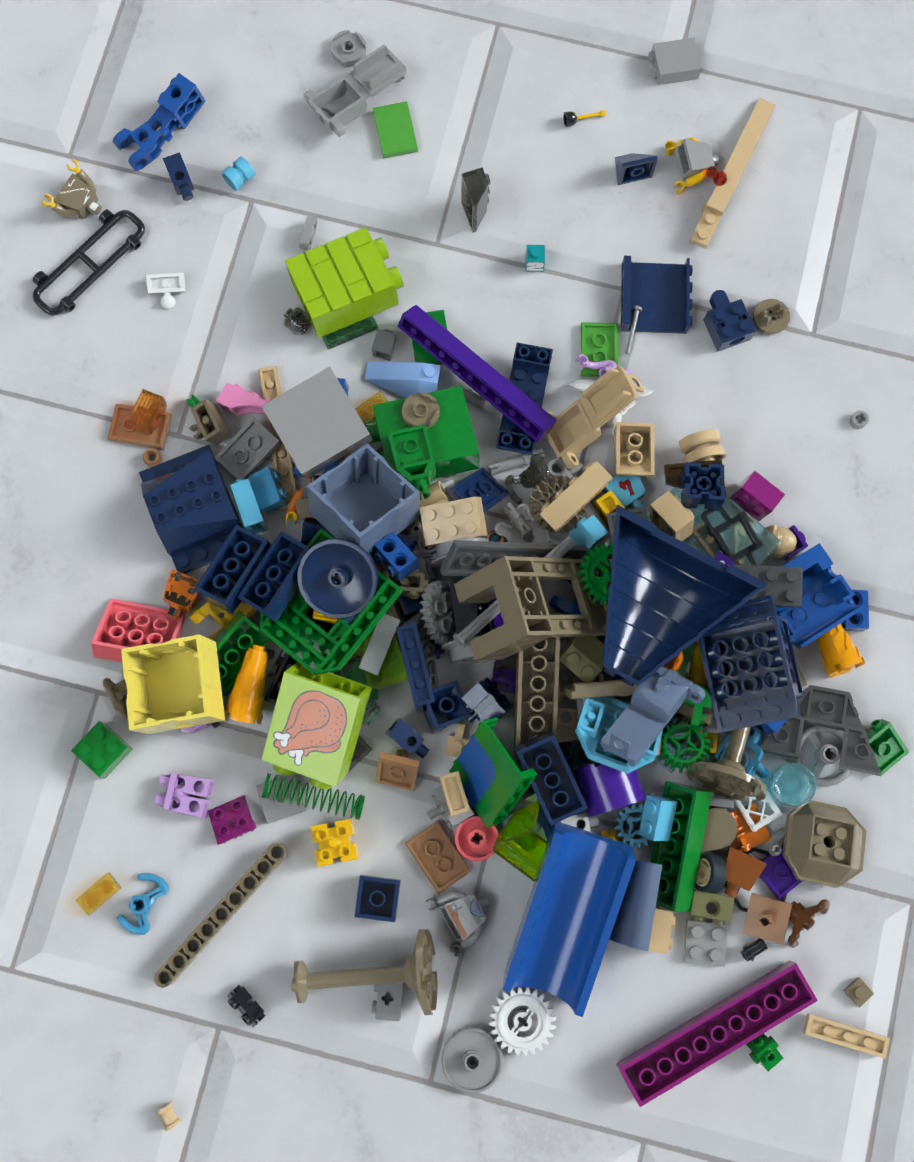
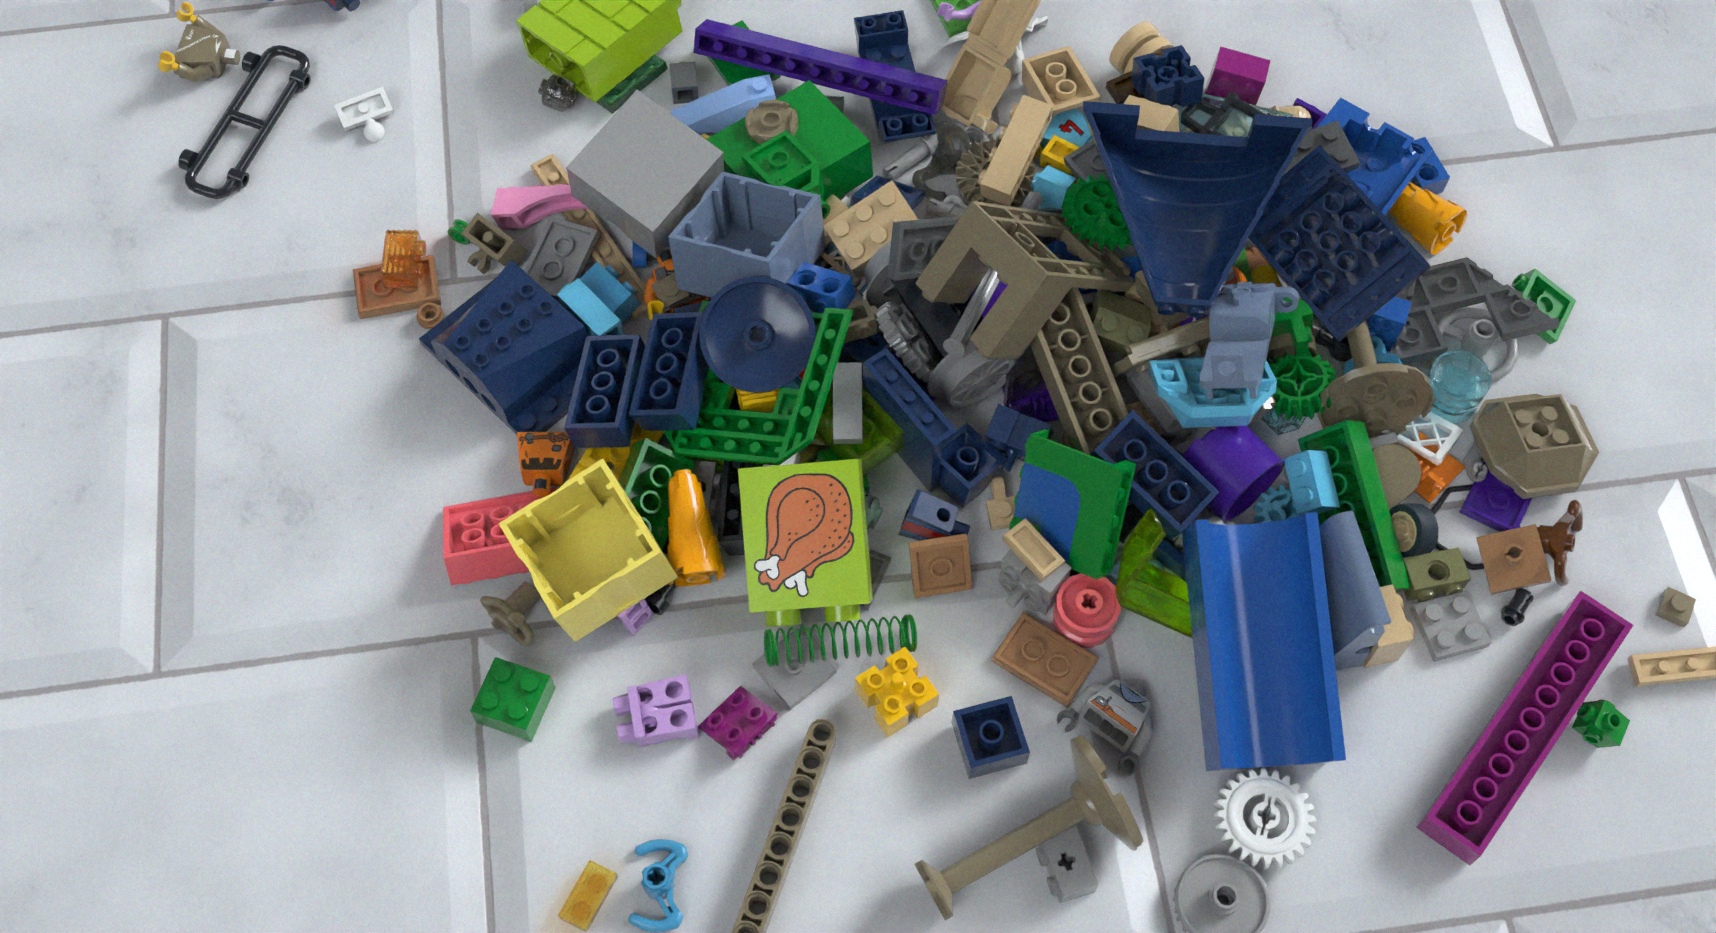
camera: 20 degrees left, 15 degrees down
(741, 871) = (1453, 510): dark orange torso -> none

